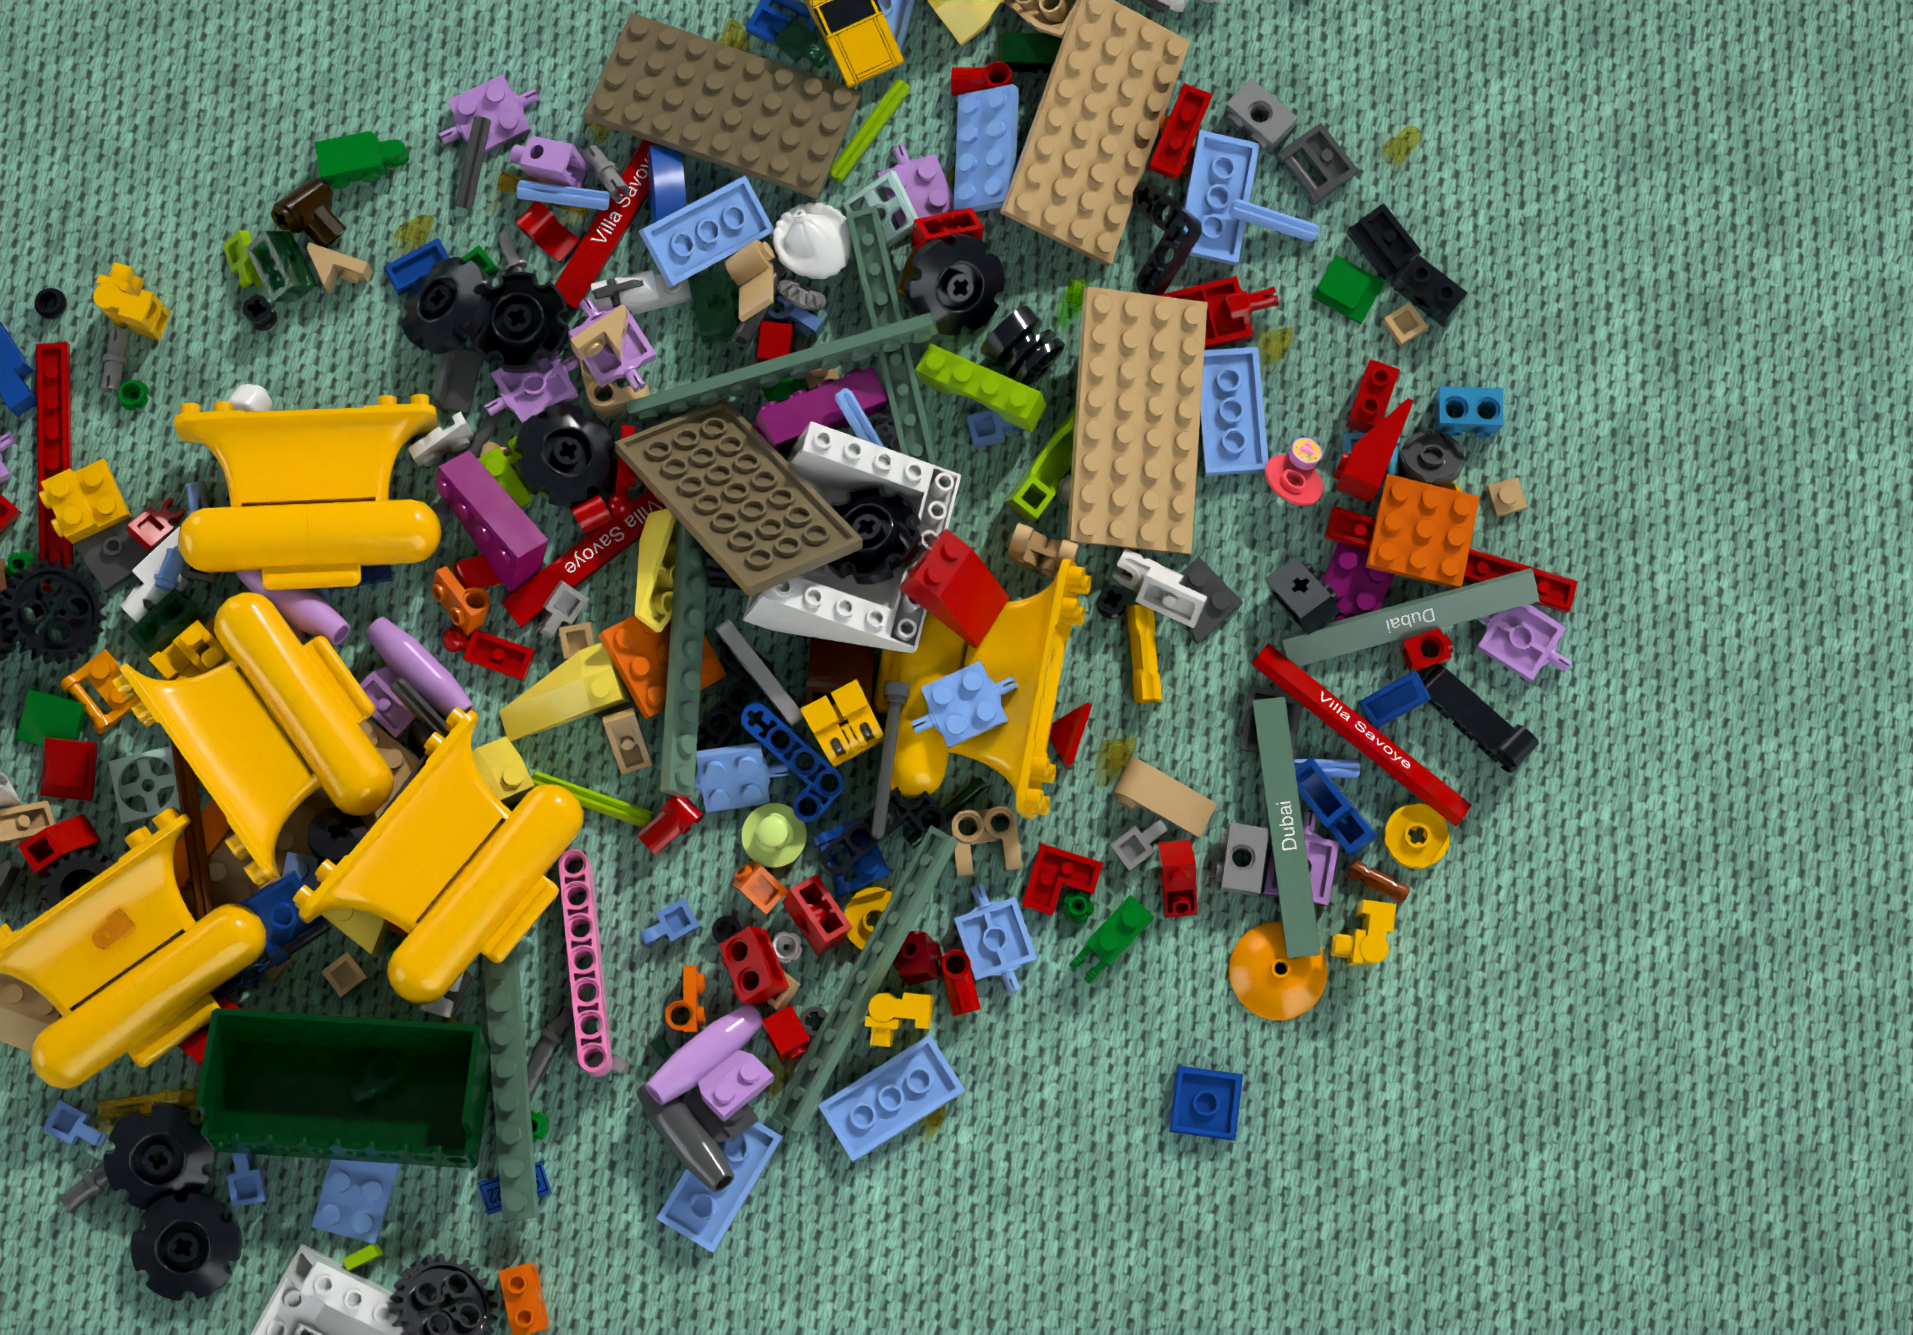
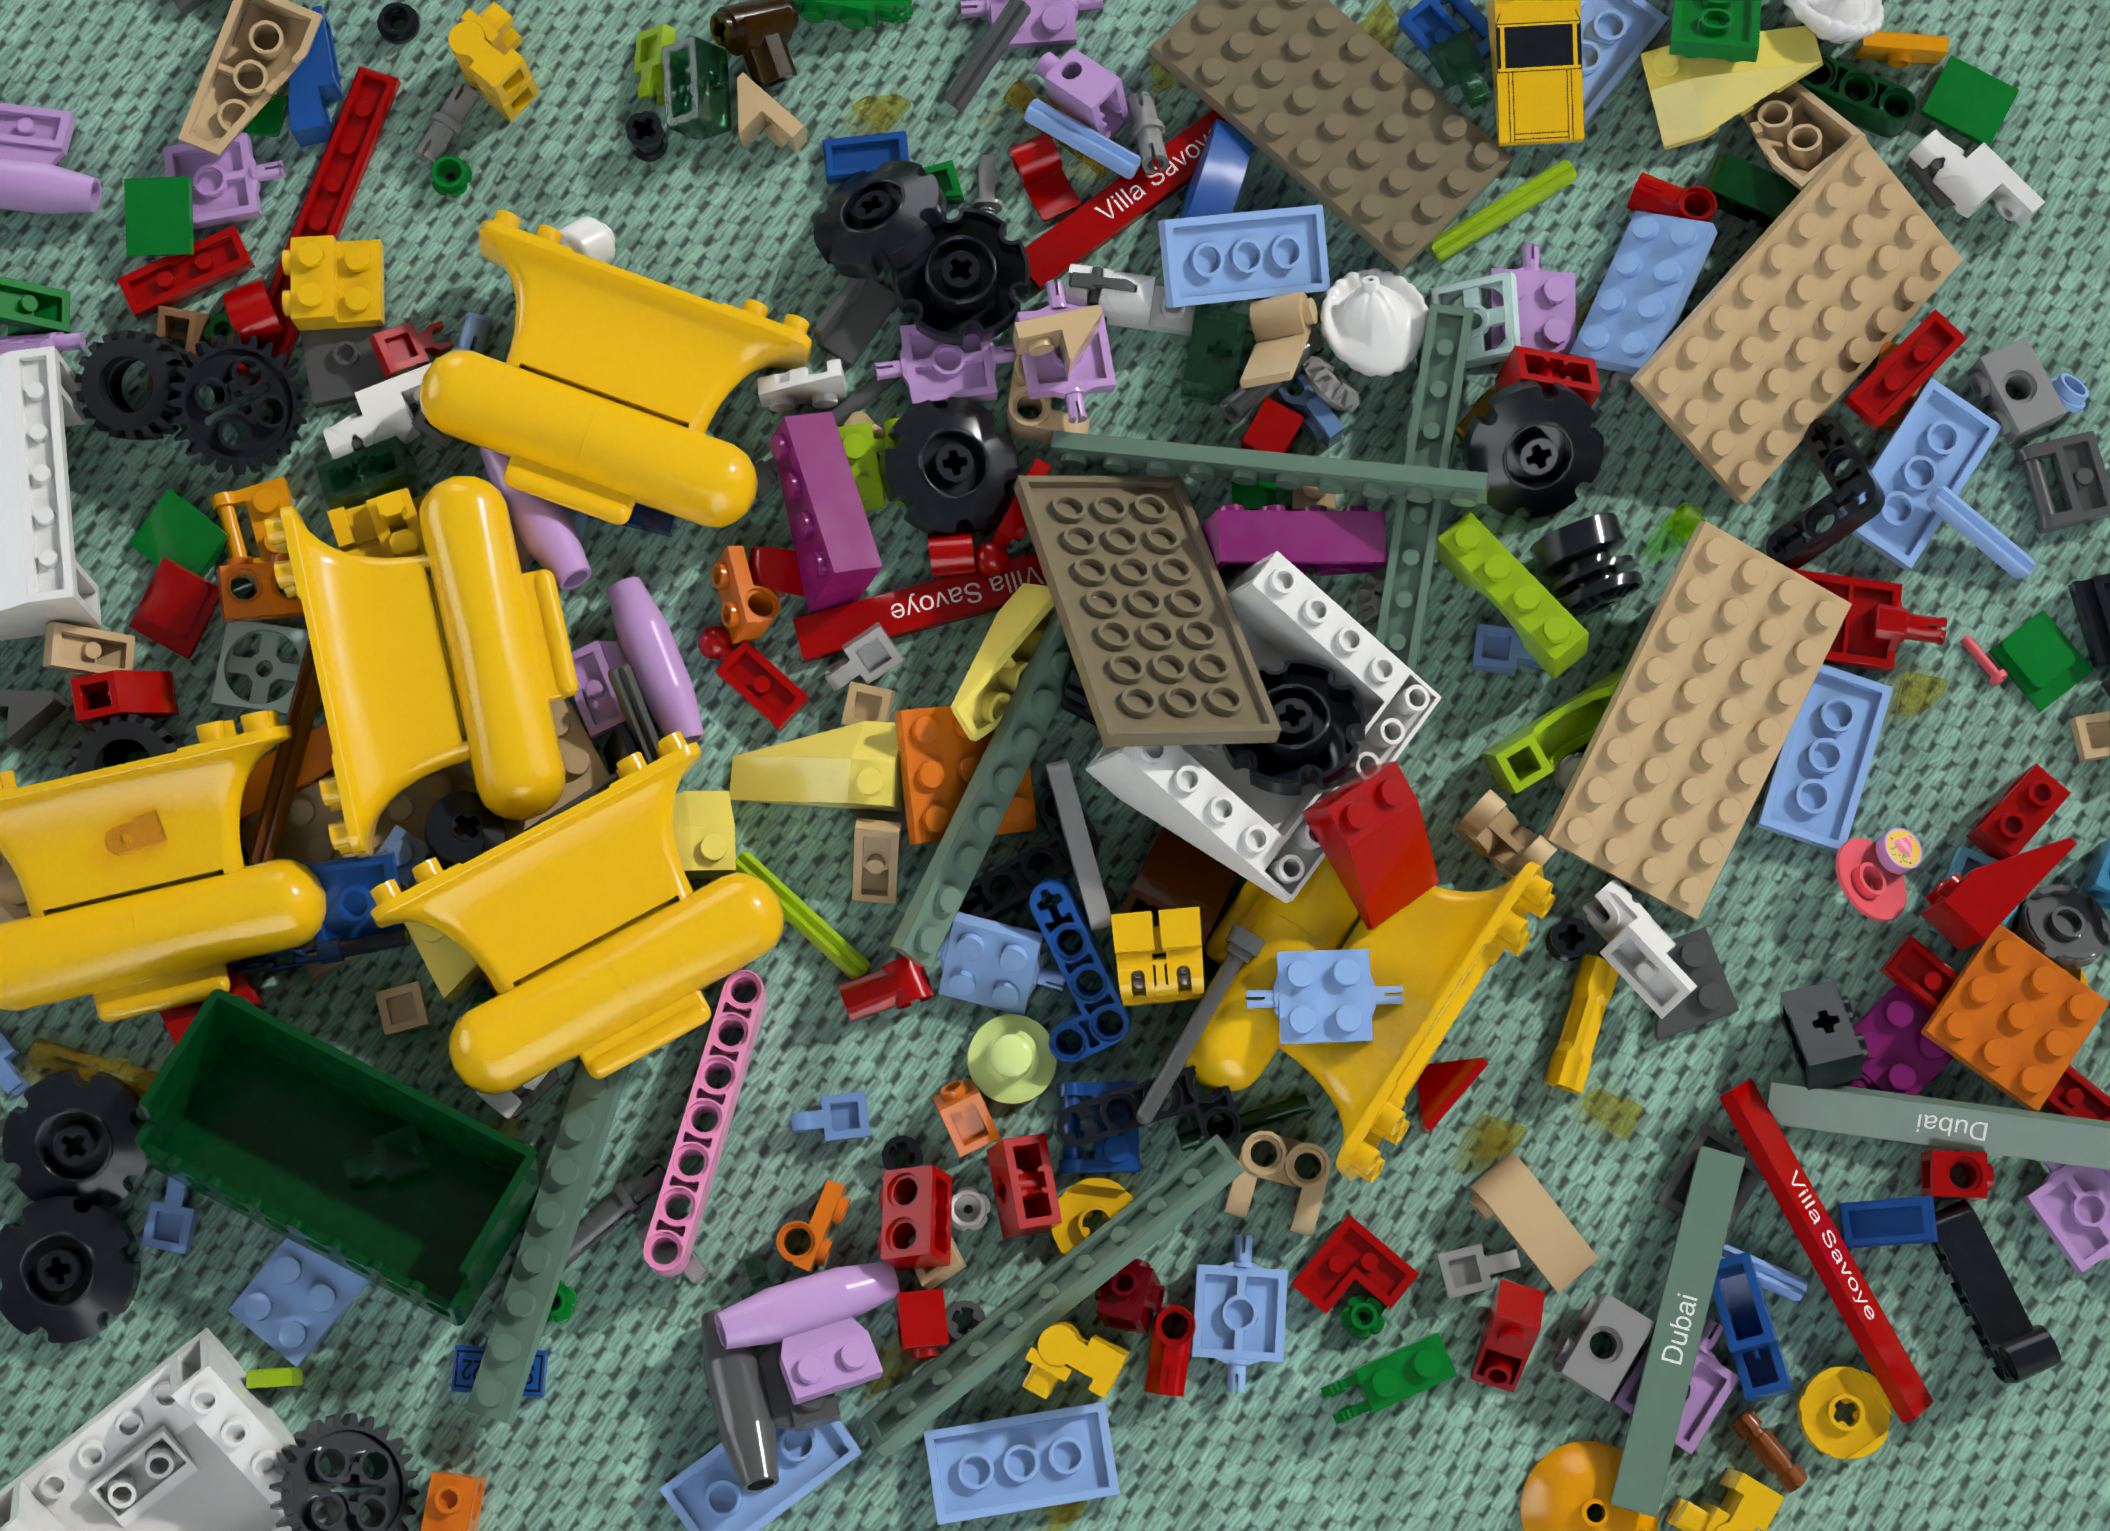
camera: 25 degrees right, 0 degrees up
(34, 542) = (252, 310): none -> red panel
(131, 737) = (267, 600): none -> orange brick
(169, 570) = (399, 412): medium blue pin -> none
(856, 417) = (1337, 568): light blue axle -> none
(1193, 705) = (1620, 1116): none -> clear yellow piece
(1295, 102) = (2070, 392): none -> light blue plate
(1323, 311) = (1995, 675): none -> coral piece

